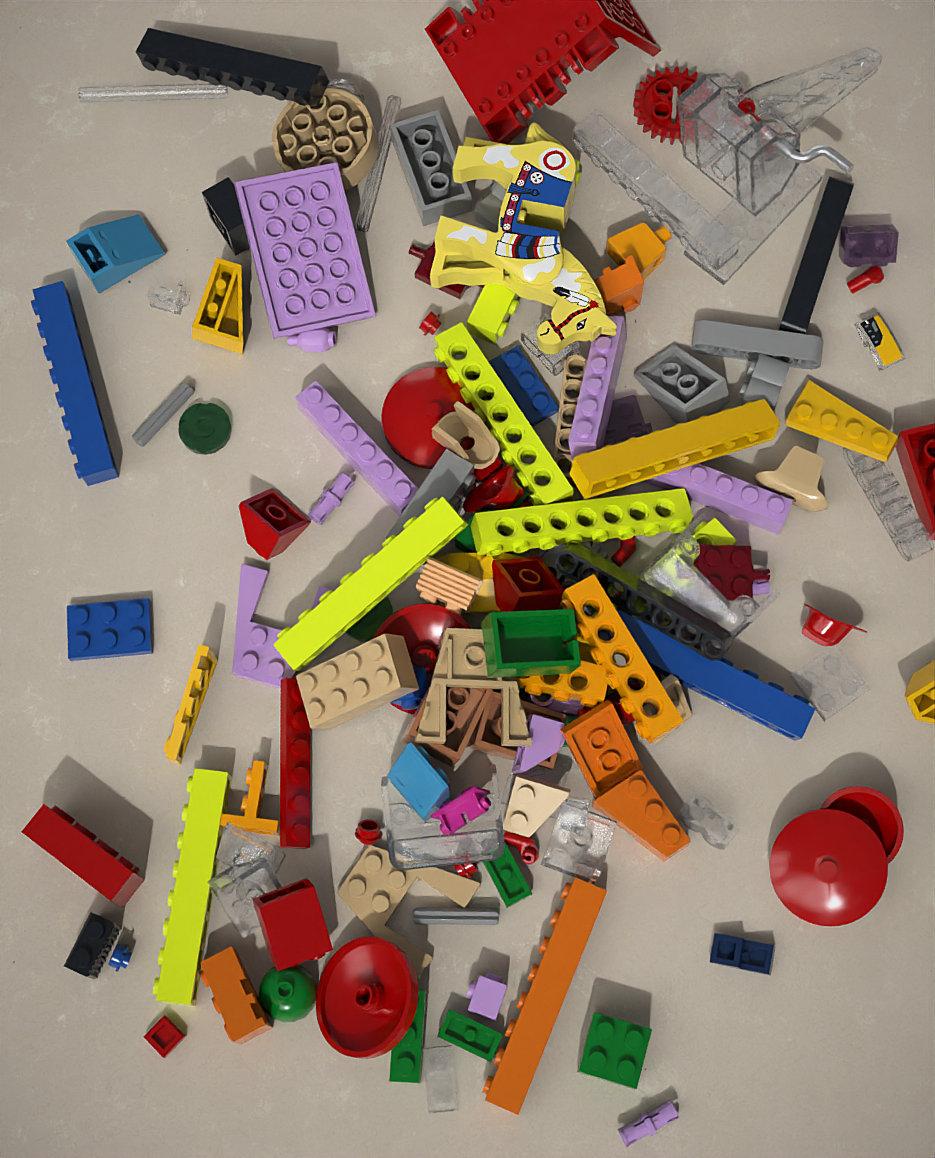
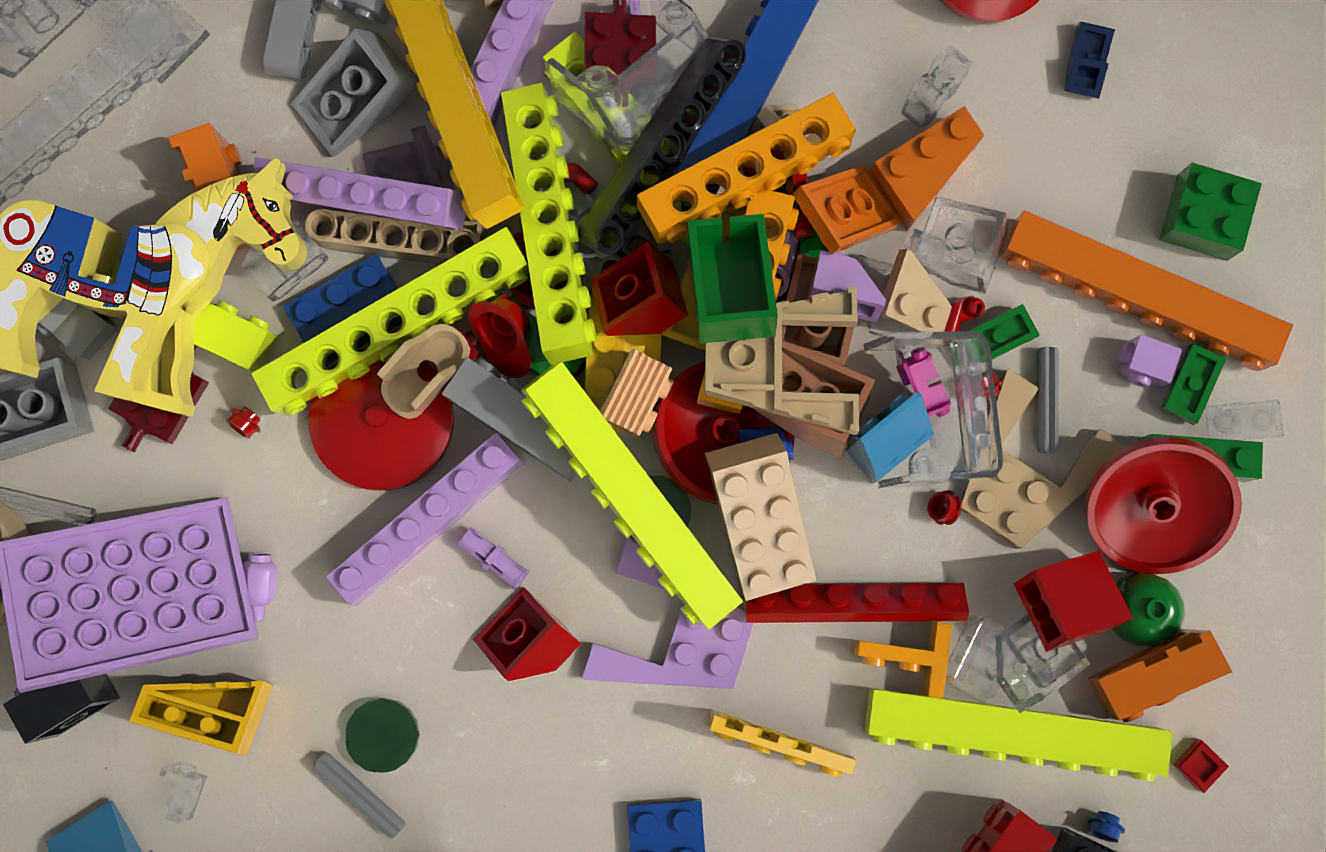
camera: 90 degrees left, 10 degrees up
(641, 243) = (146, 140): light orange torso -> none
(648, 1123) = (1301, 198): lavender pin -> none

